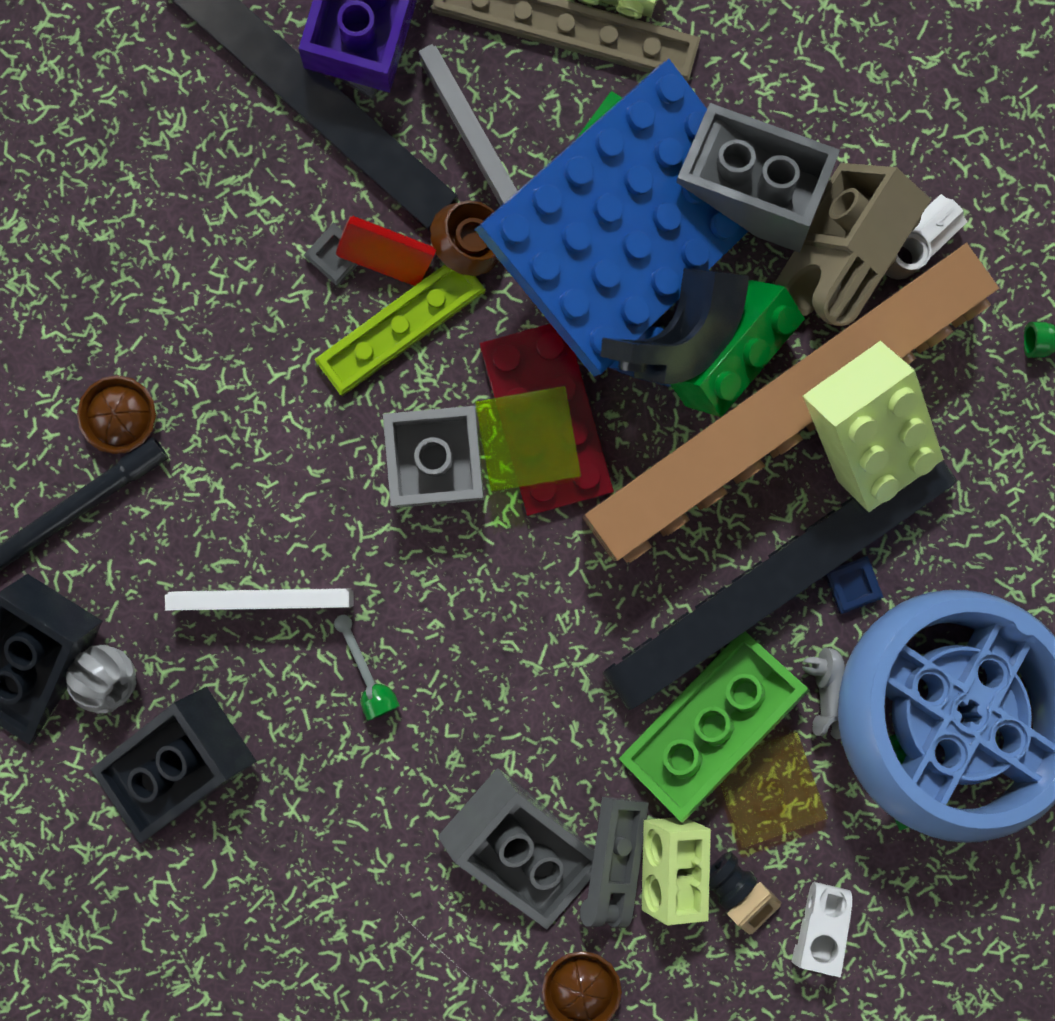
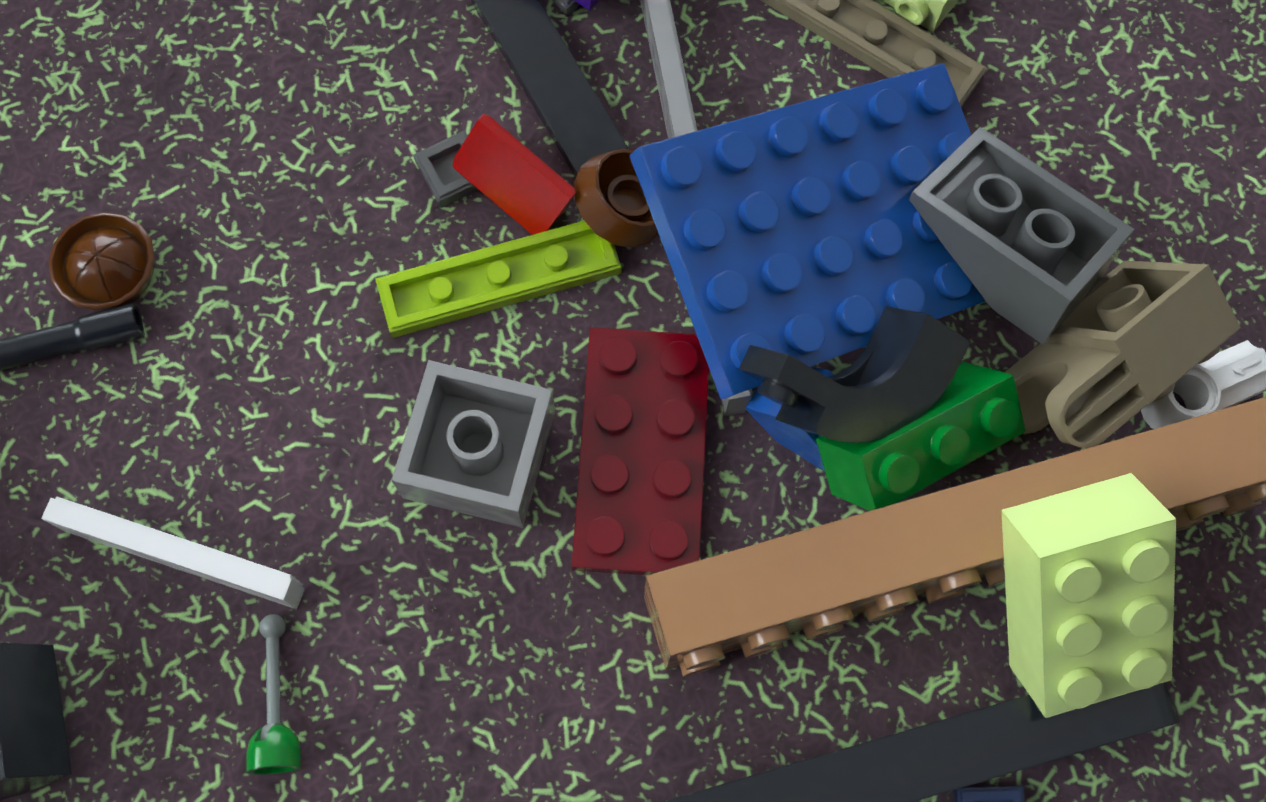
camera: 20 degrees right, 15 degrees down
(528, 439) = (607, 463): clear neon green tile -> none

